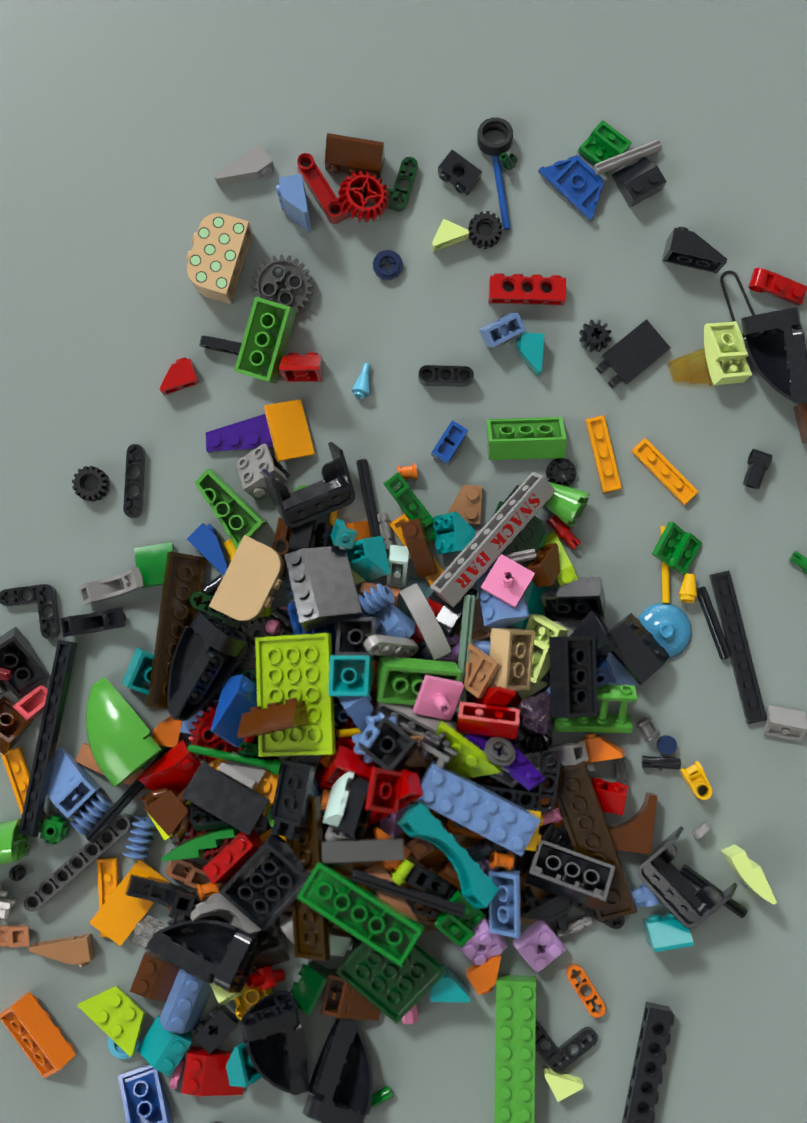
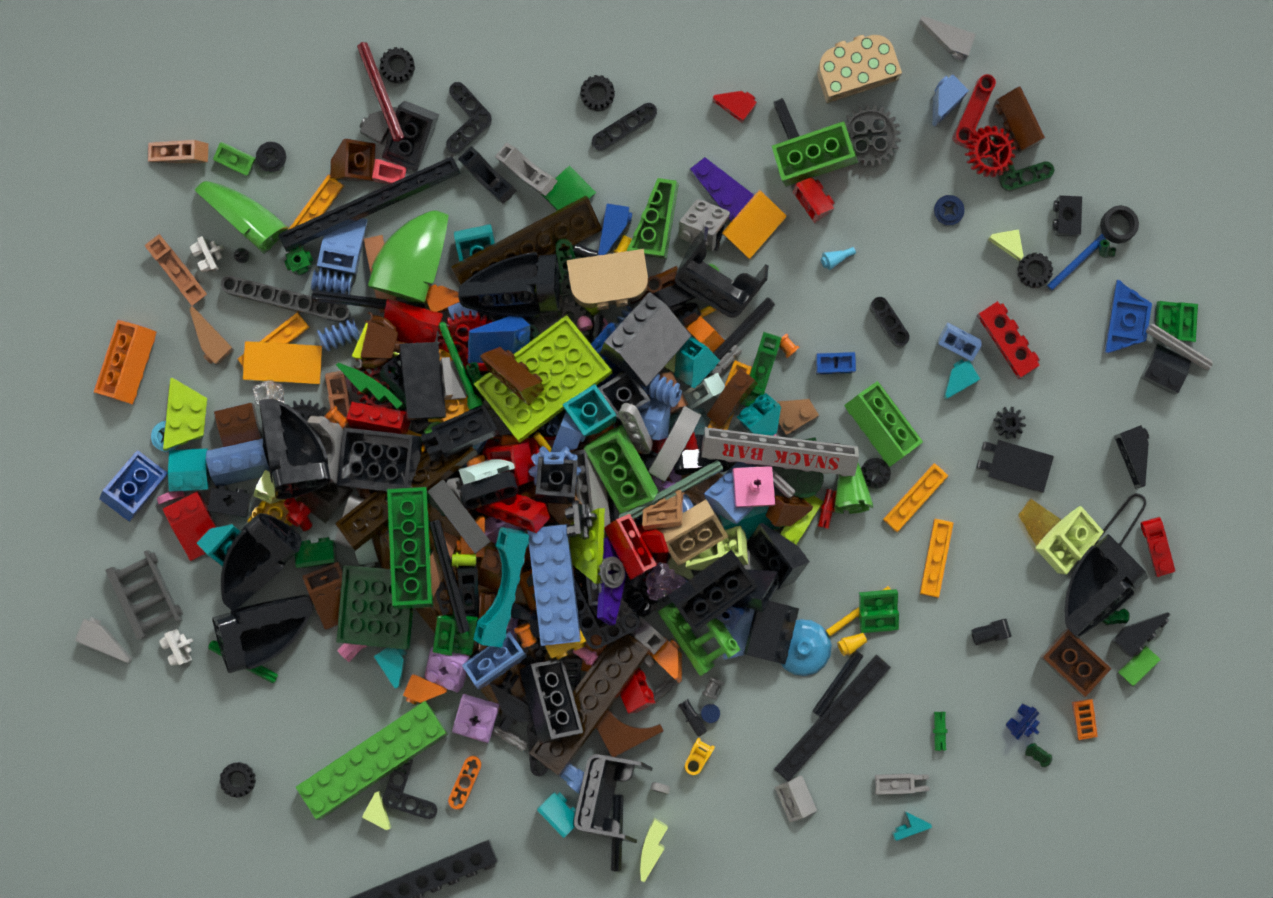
camera: 50 degrees right, 0 degrees up
(172, 896) = (308, 382): black arch -> none
(343, 536) = (697, 328): teal bracket -> none
(384, 790) = (519, 498): red slope -> none
(438, 697) = (620, 494): bright pink tile -> none

